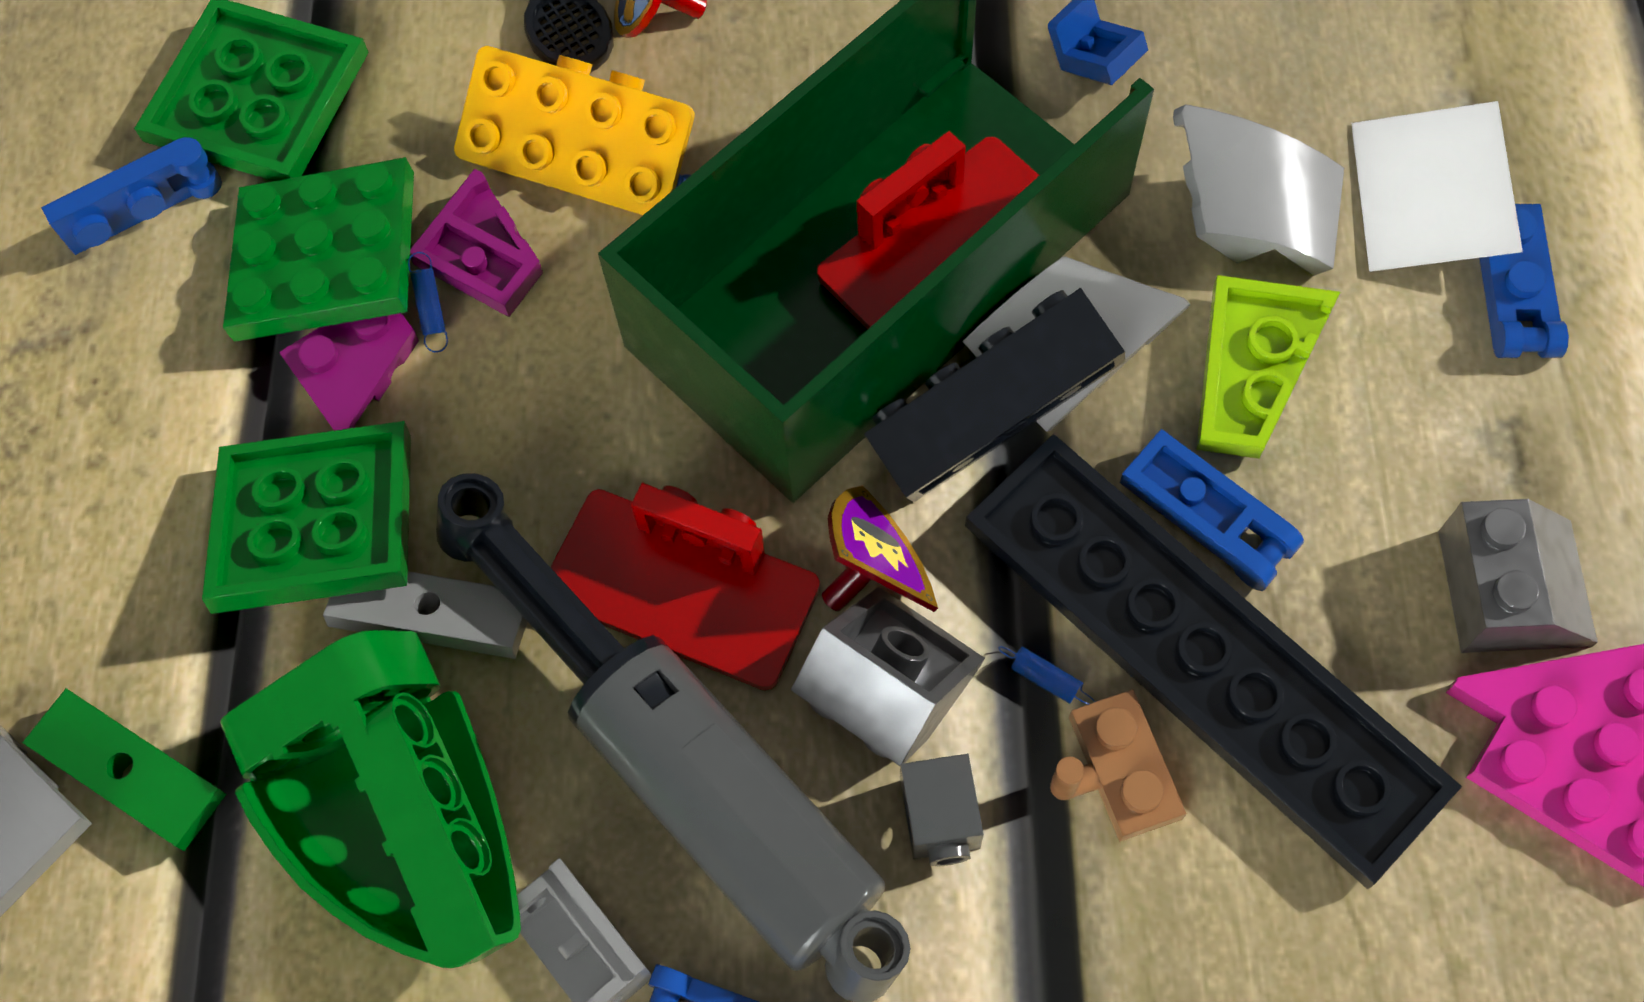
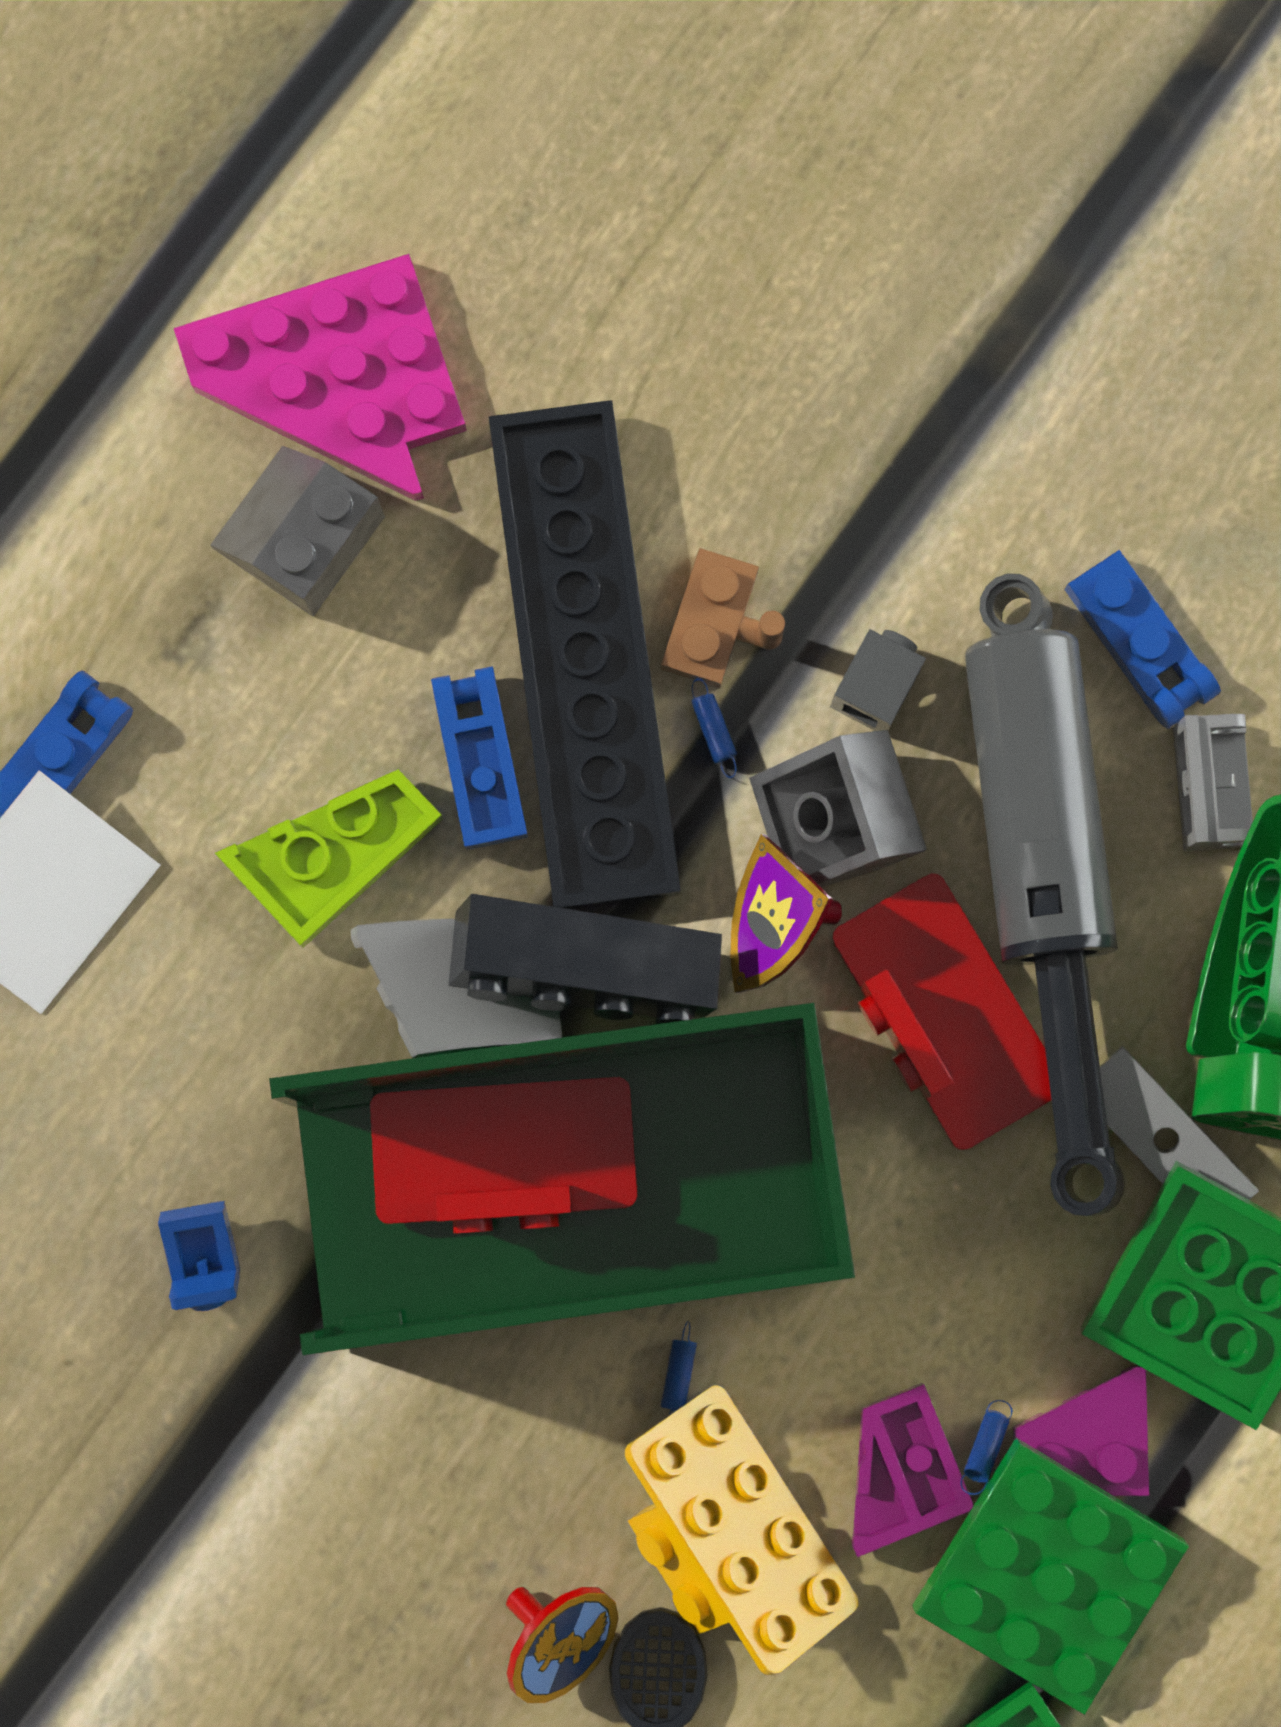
camera: 145 degrees left, 15 degrees up
(1260, 190) = (194, 992): light grey slope -> none

